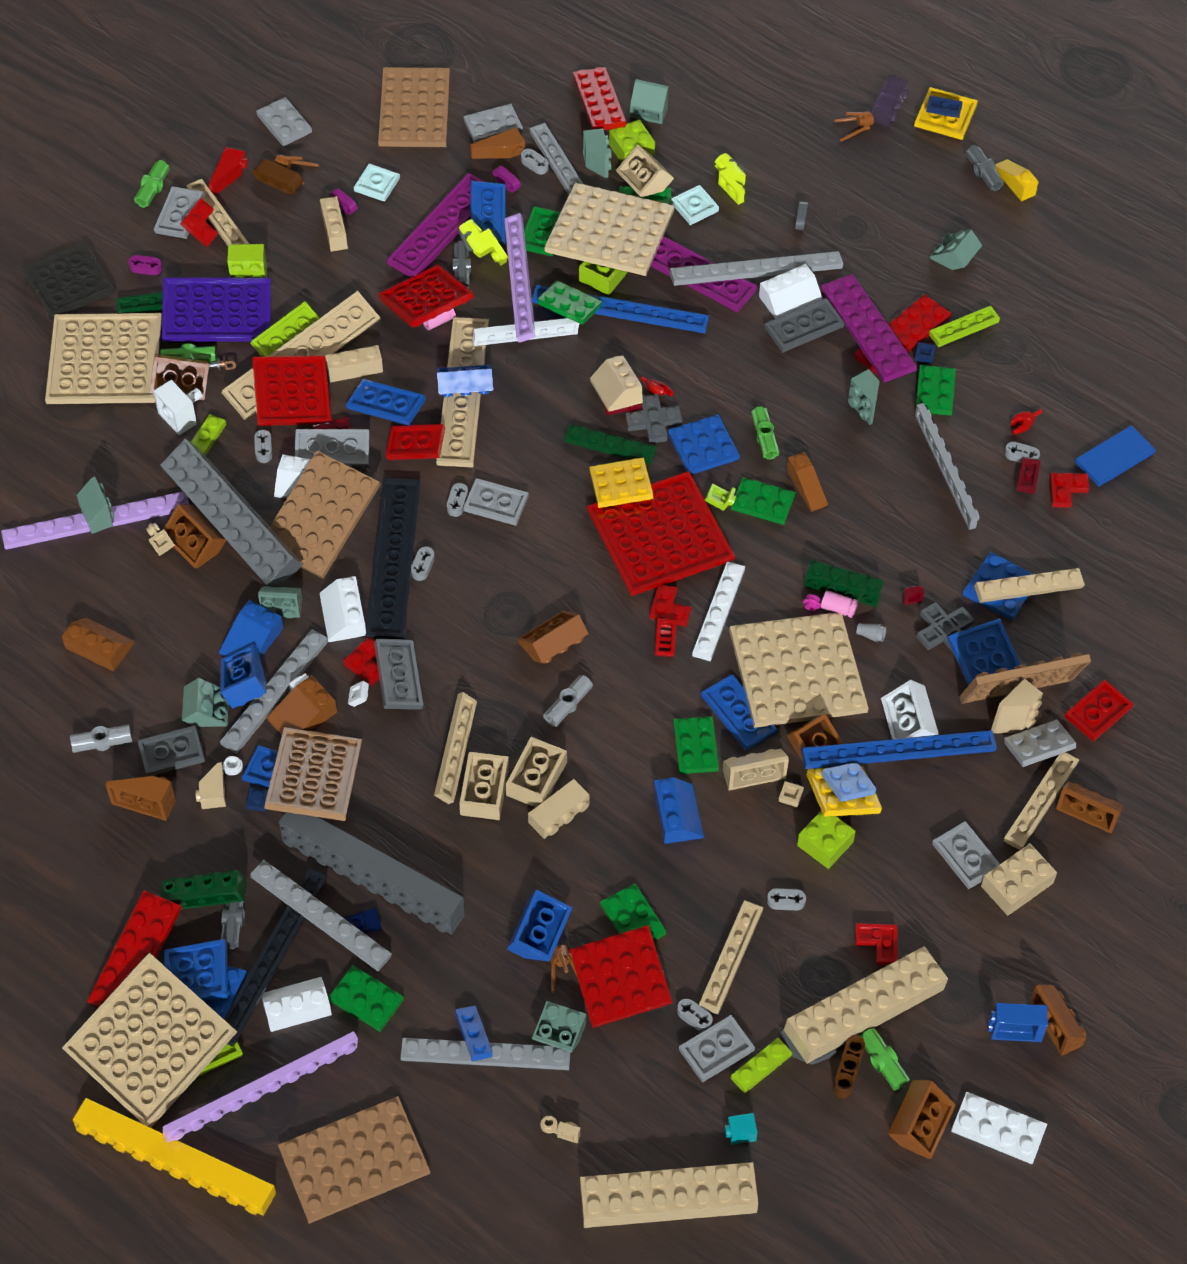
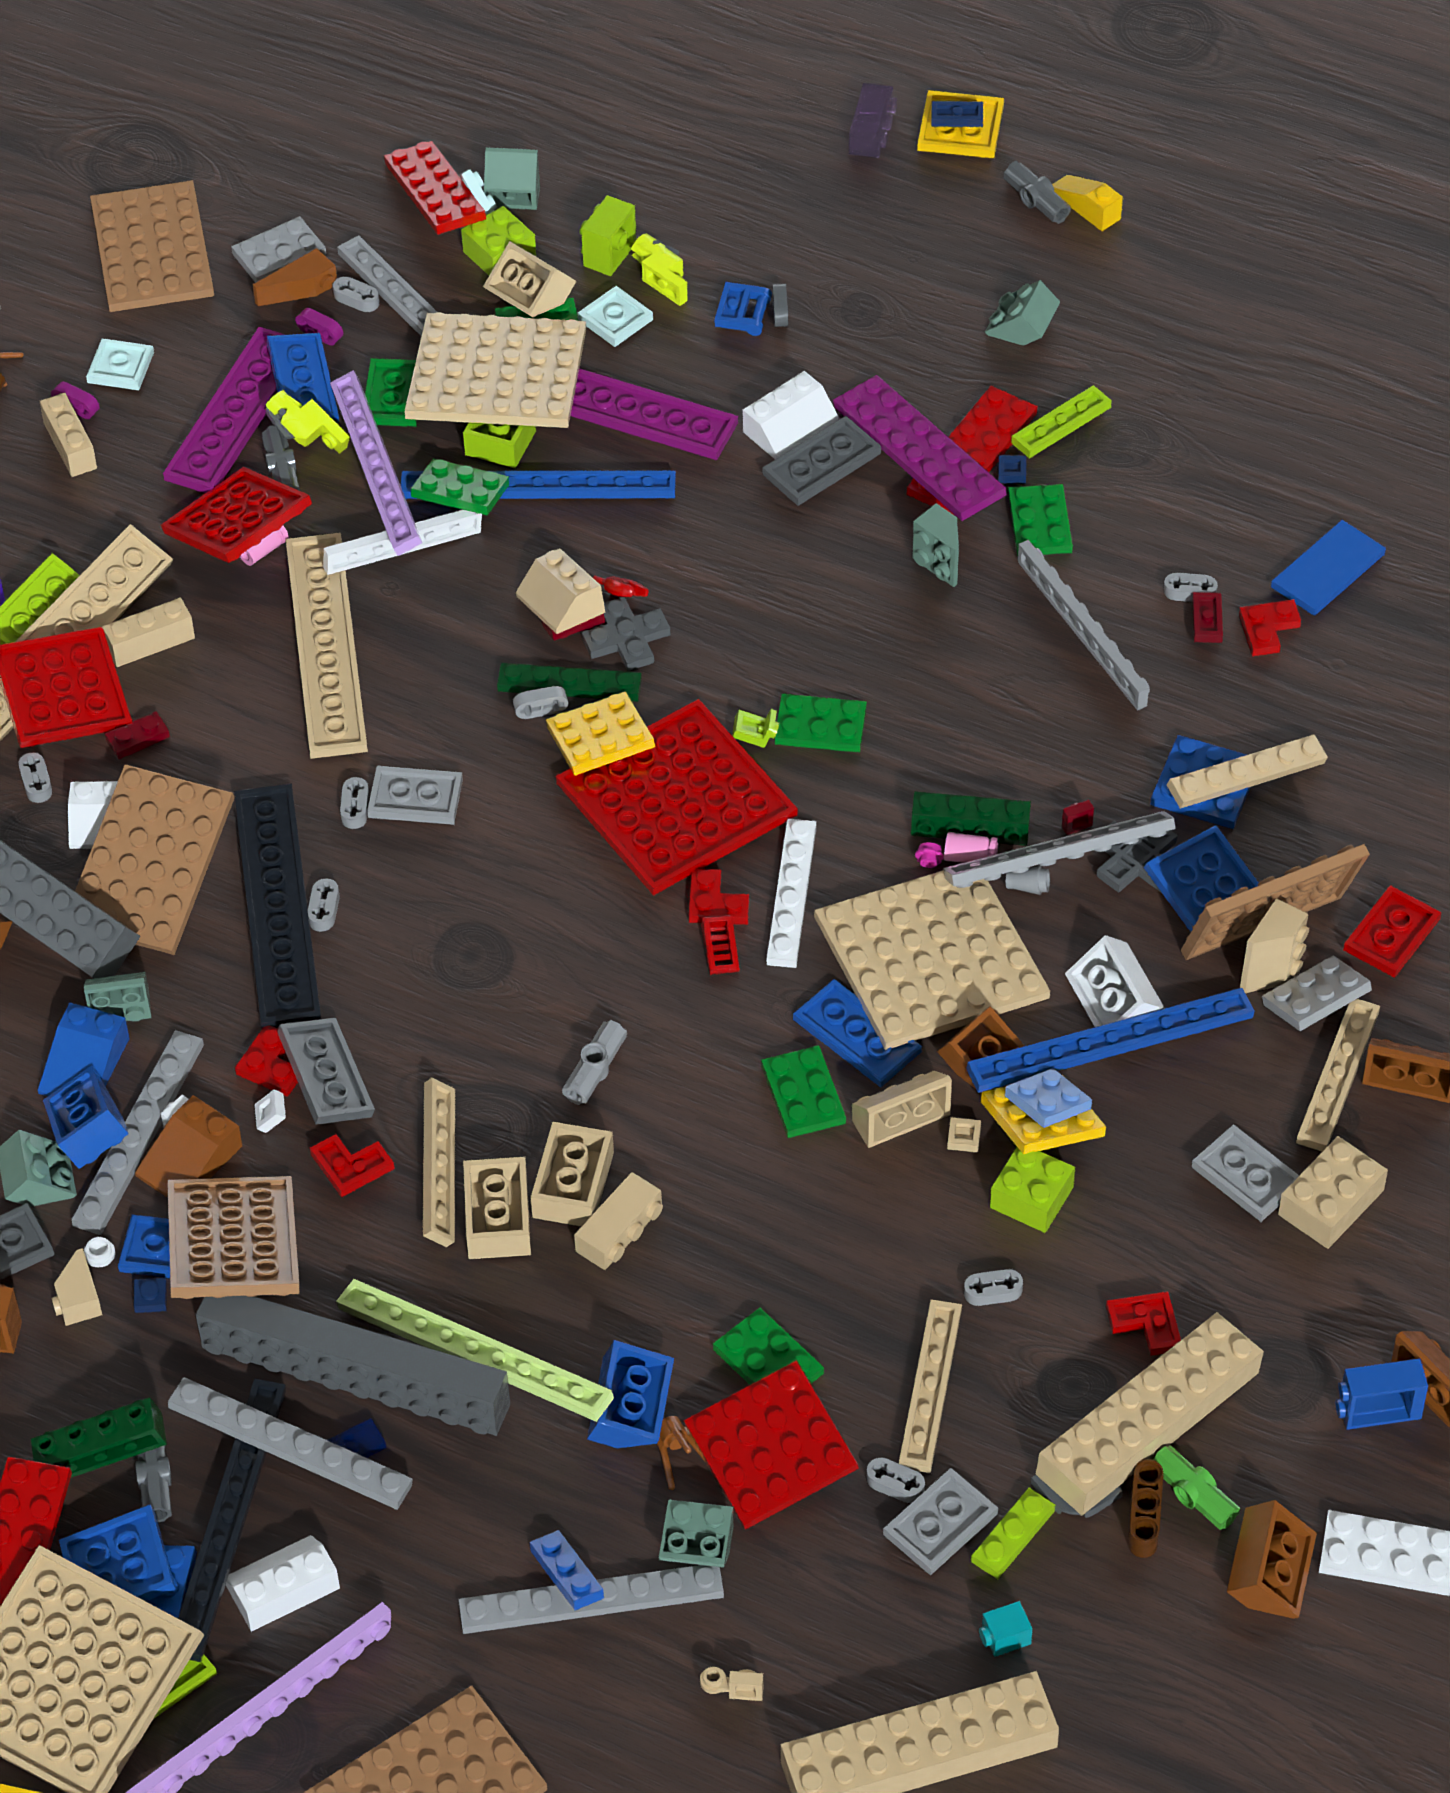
camera: 10 degrees left, 5 degrees down
(342, 610) = (217, 993): white slope -> none
(343, 445) = (166, 751): light grey plate -> none
(366, 998) = (388, 1553): green plate -> none
(386, 401) = (211, 679): blue tile -> none
(398, 742) = (350, 1171): none -> red plate
(415, 442) = (271, 729): red plate -> none
(448, 877) = (454, 1339): none -> yellowish green plate
(464, 380) = (326, 625): slope -> none
(553, 636) = (550, 973): dark orange slope -> none
(588, 455) = (540, 702): none -> light grey beam
(596, 152) = (449, 263): sand green slope -> none
(624, 101) = (474, 184): none -> light aqua plate
(677, 810) = (797, 1190): blue slope -> none
(701, 150) = (608, 235): none -> lime brick
(703, 444) = (711, 657): blue plate -> none
(754, 268) = (726, 391): light grey plate -> none
(765, 433) = (800, 624): bright green piece -> none
(772, 211) = (734, 306): none -> blue plate
(806, 481) = (879, 683): dark orange slope -> none
(863, 119) = (840, 152): dark orange plant -> none
(888, 616) = (1069, 846): none -> light grey plate
(1025, 419) = (1185, 539): red hand -> none

